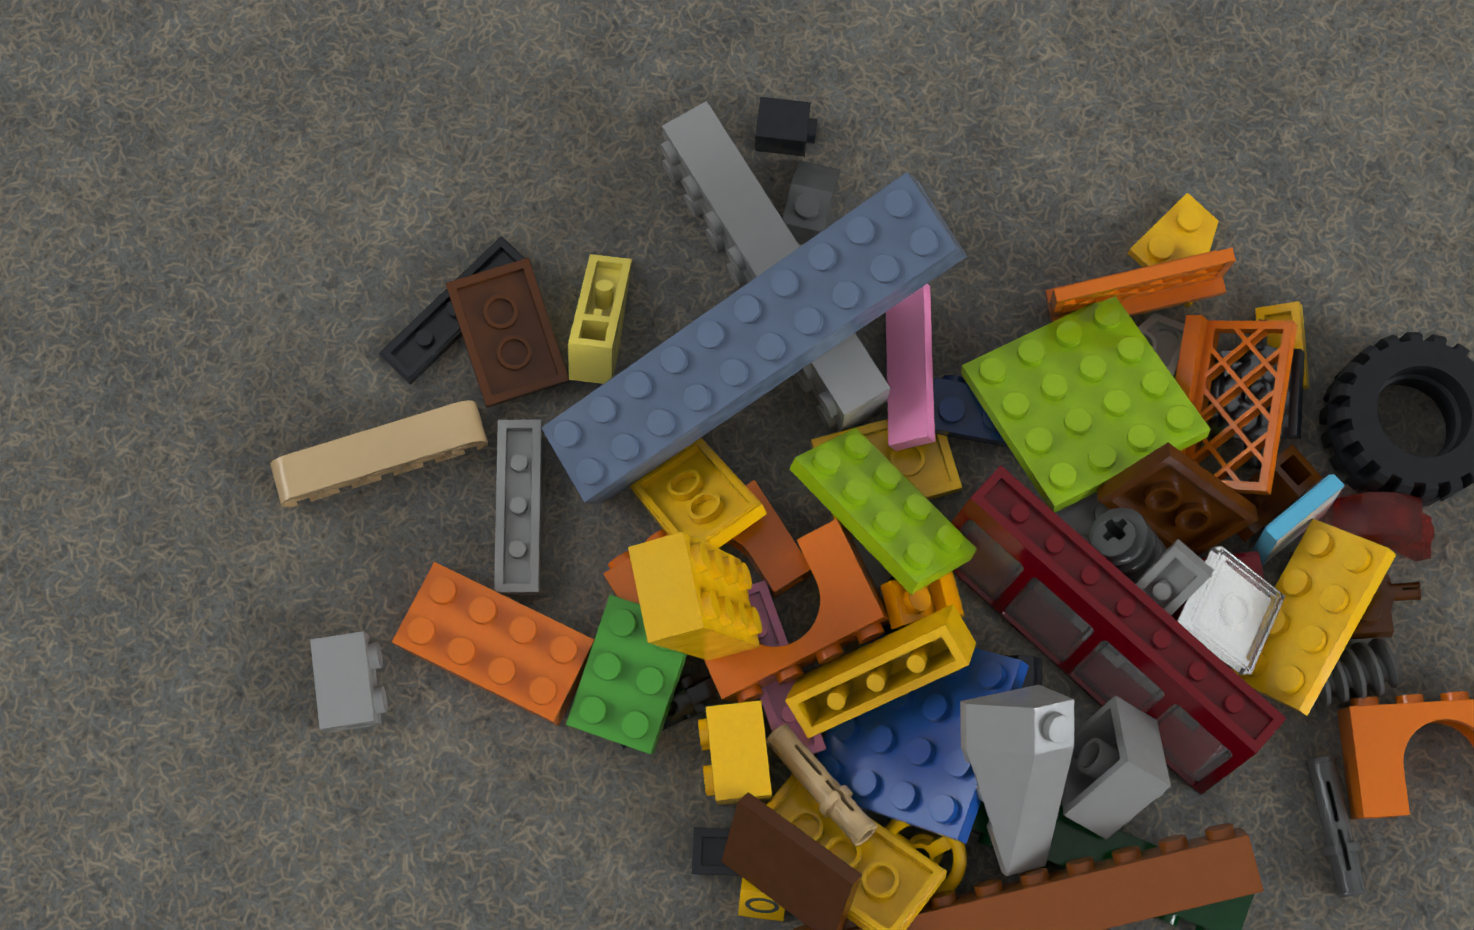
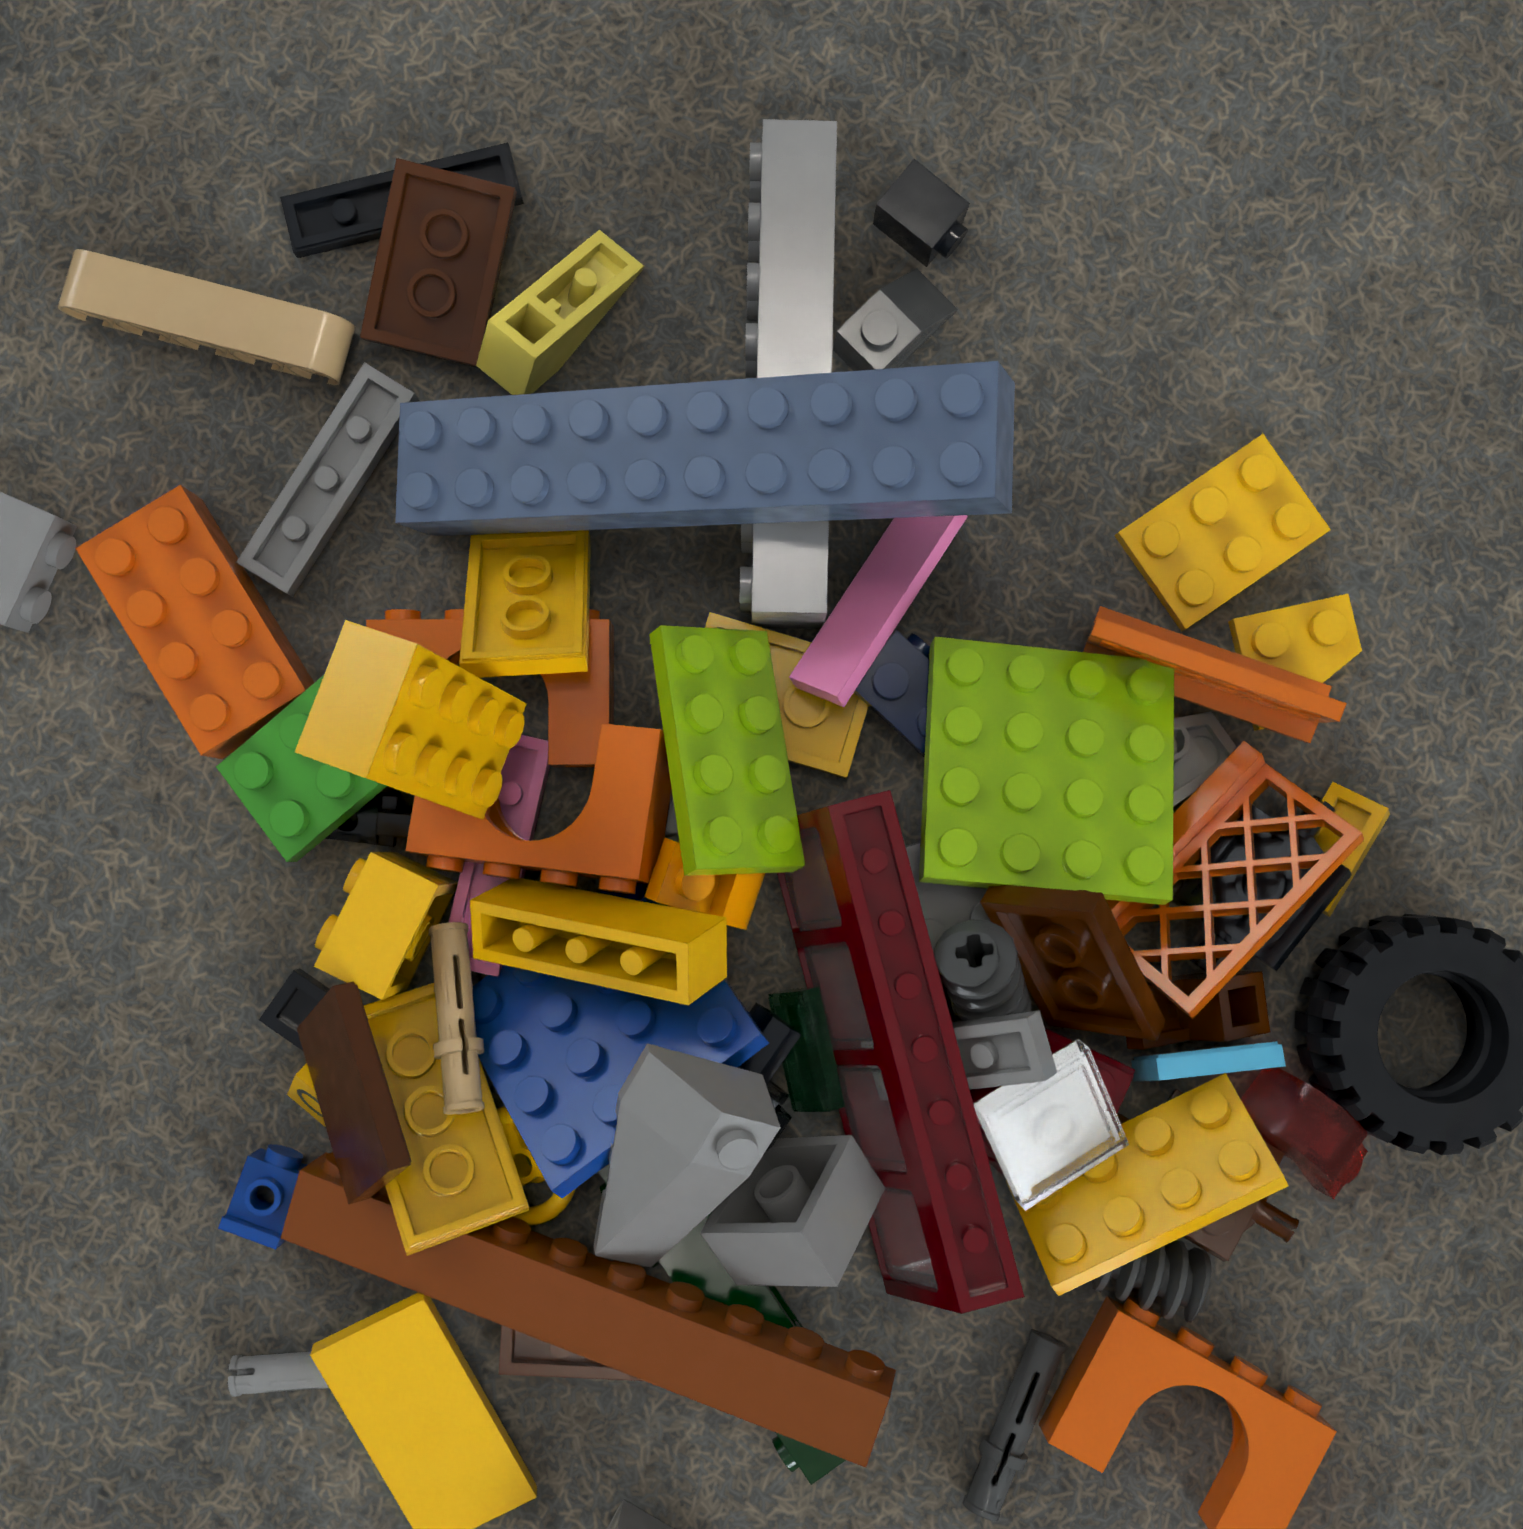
camera: 25 degrees right, 10 degrees up
(1057, 671) = (811, 1062): none -> clear green tile
(1088, 203) = (1222, 532): none -> yellow plate

